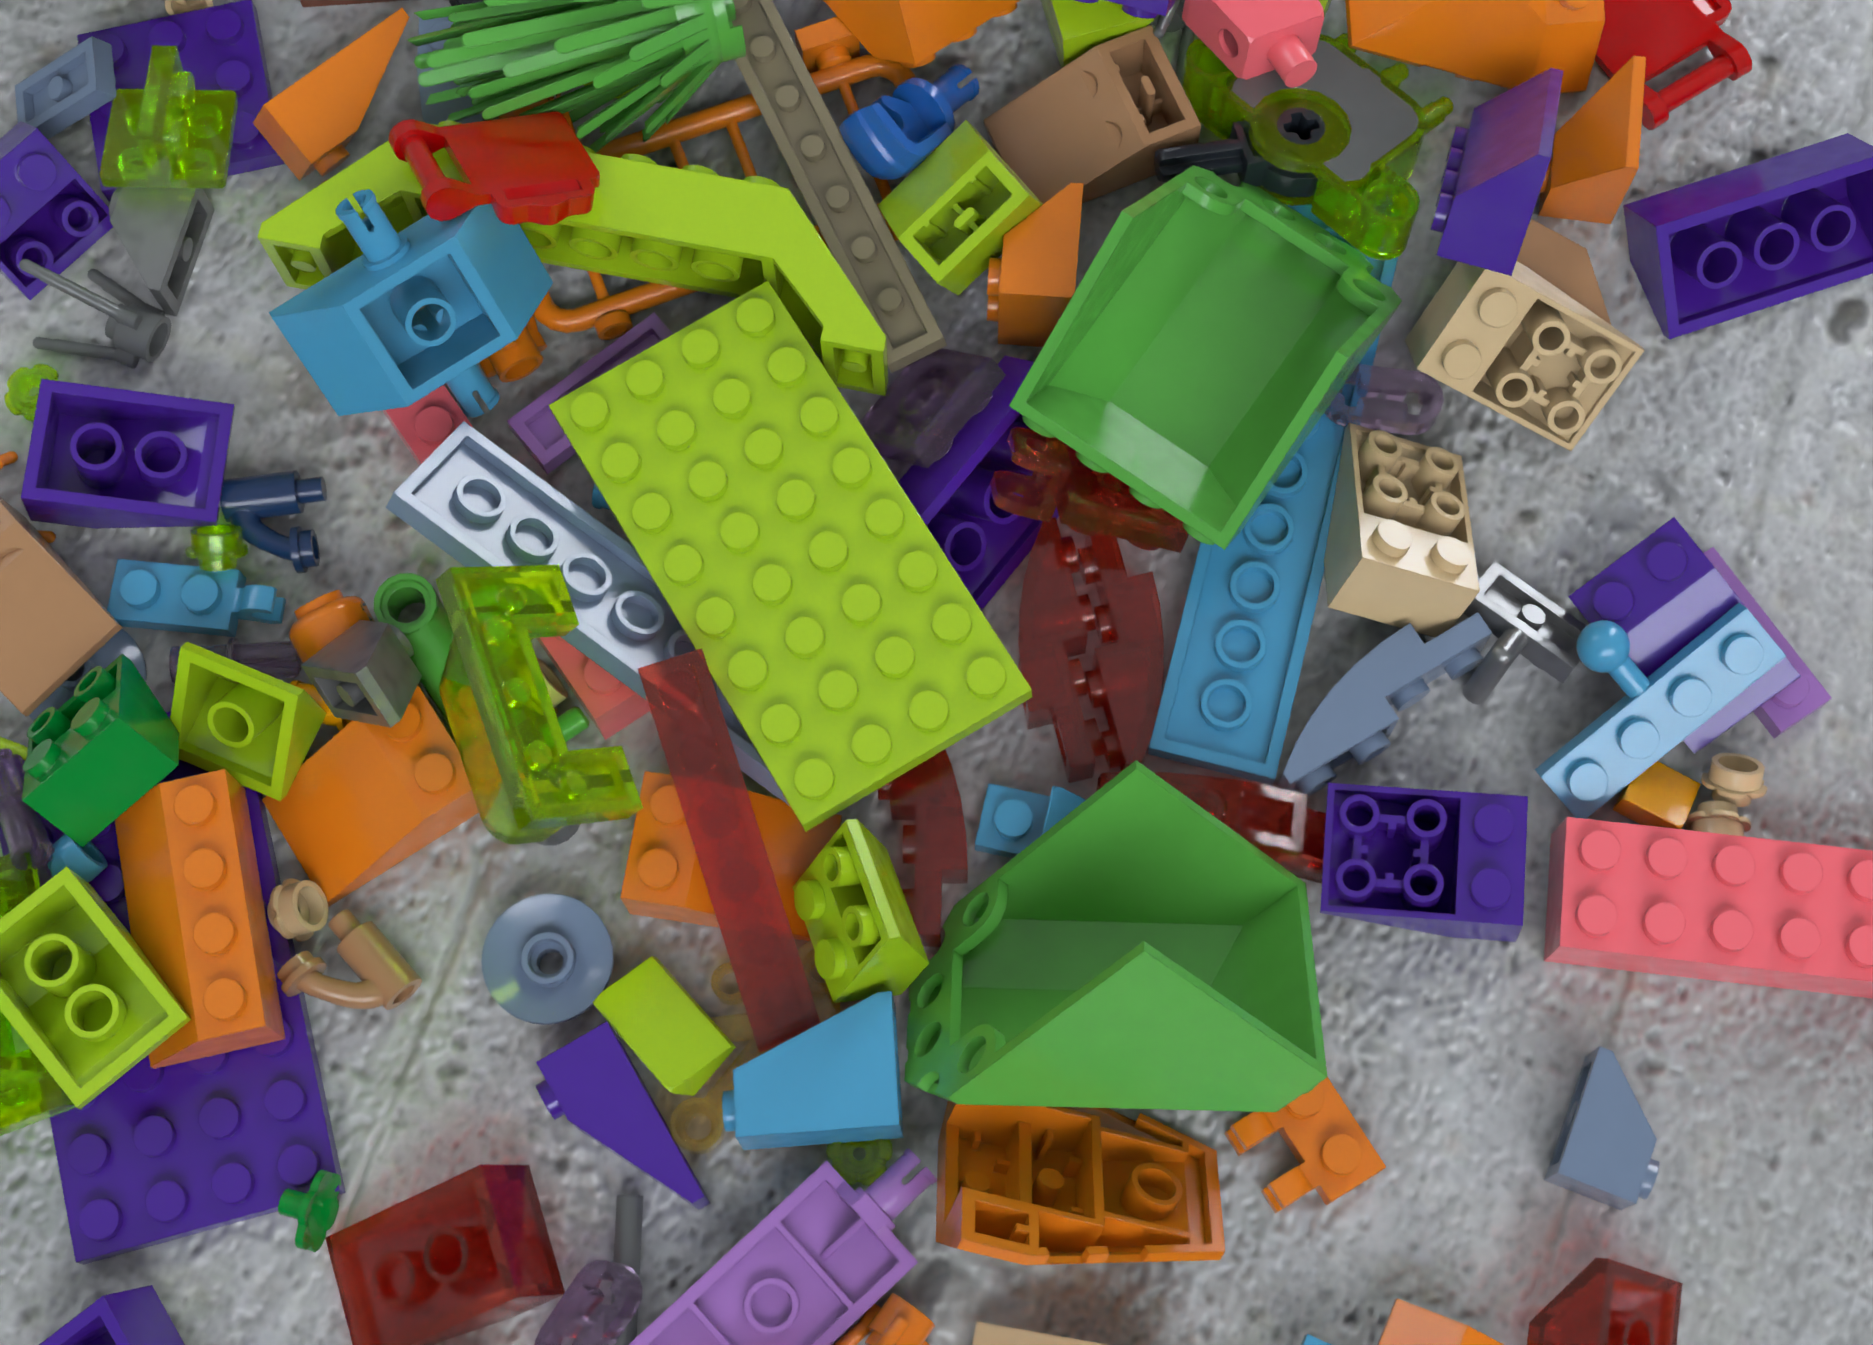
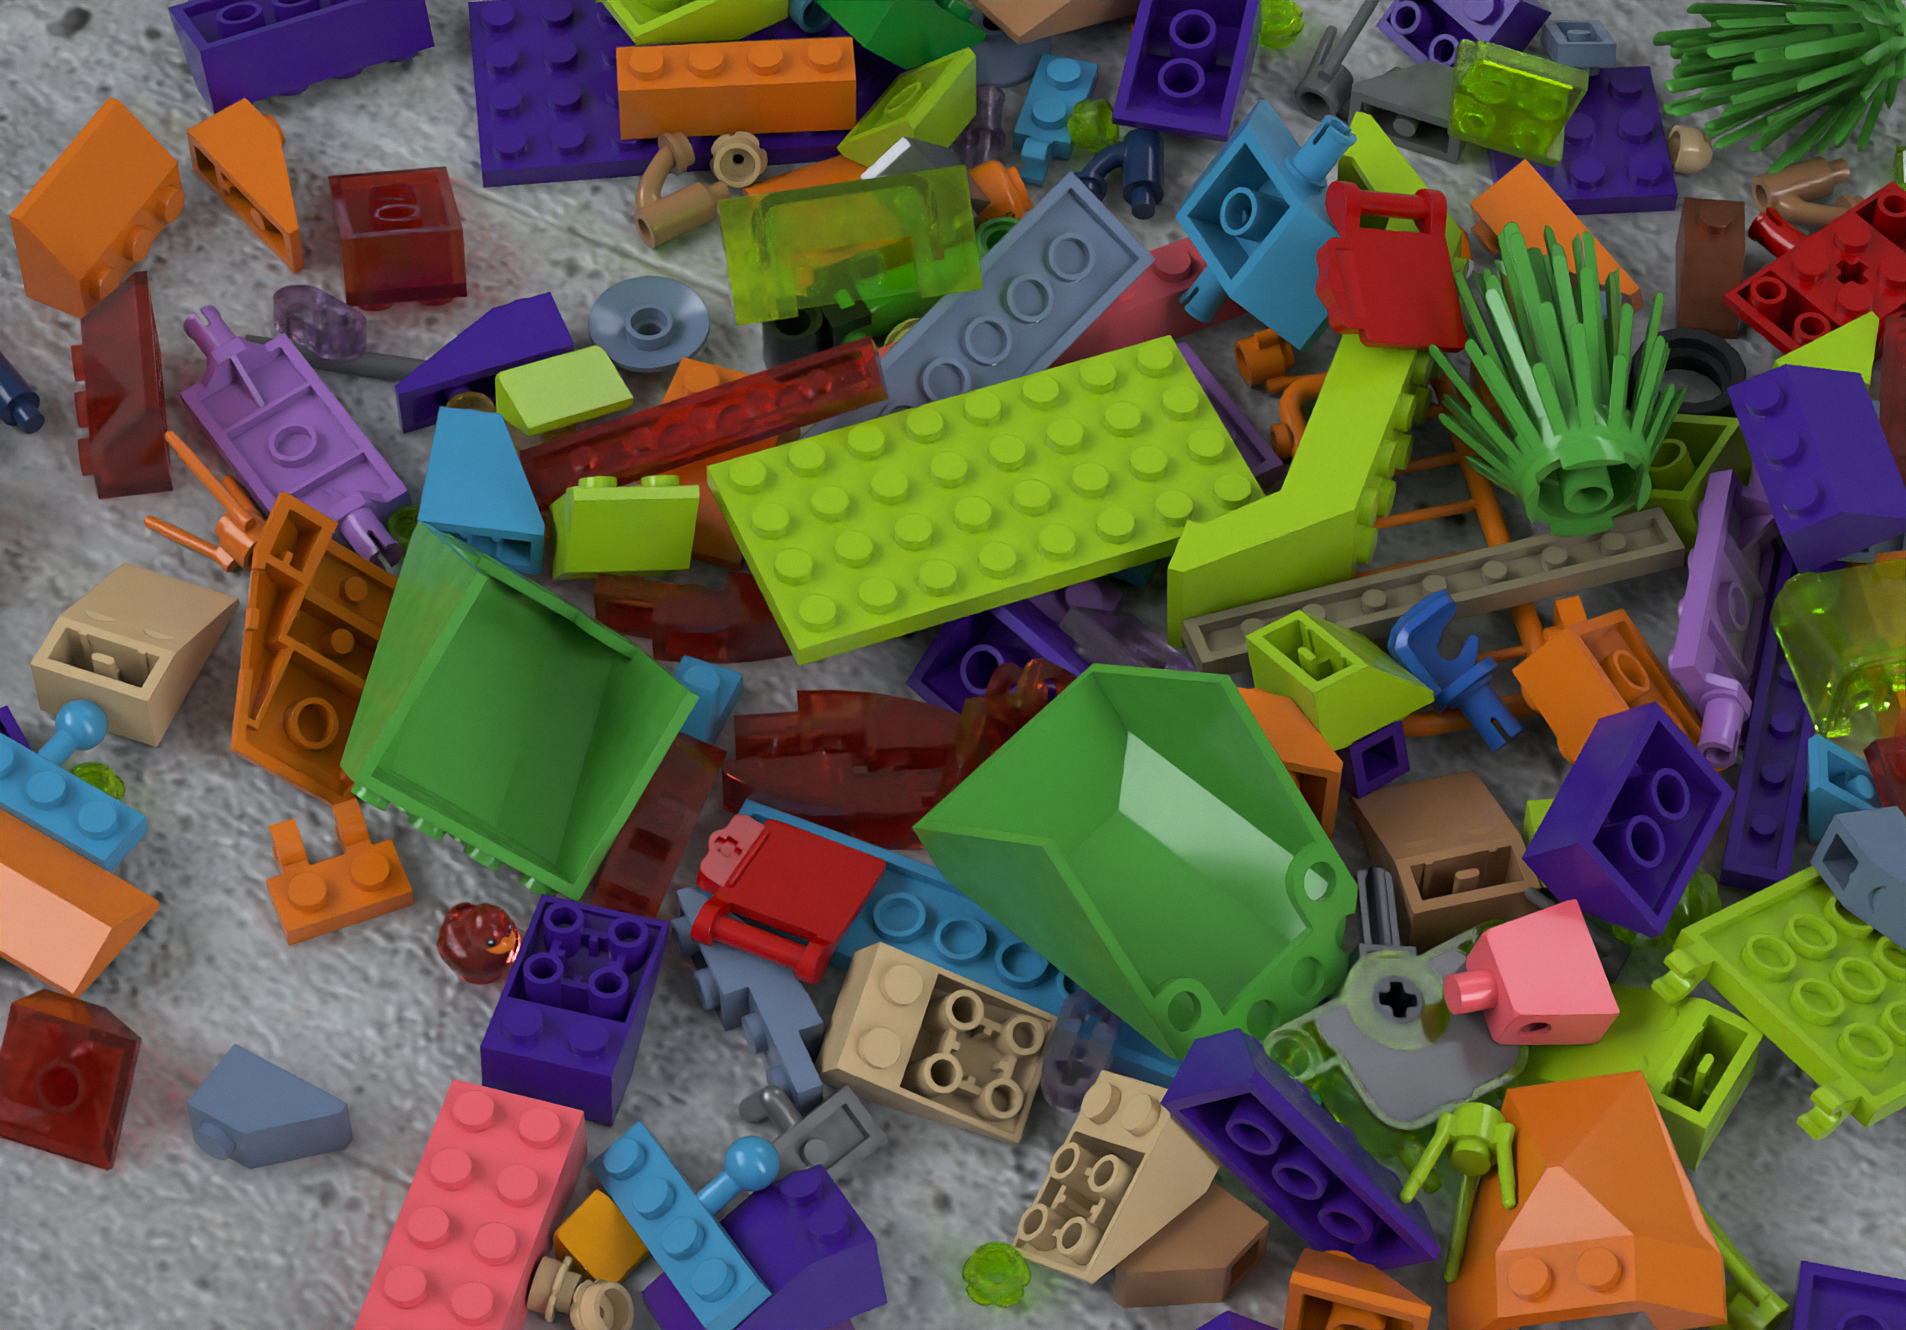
camera: 95 degrees right, 20 degrees down
(313, 1210) = (464, 147): green plant -> none
(1258, 682) = (786, 883): none -> red piece
(1368, 967) = (478, 941): none -> clear red animal
(1428, 58) = (1474, 1141): none -> lime plant
(1612, 437) = (1001, 1260): none -> clear neon green plate

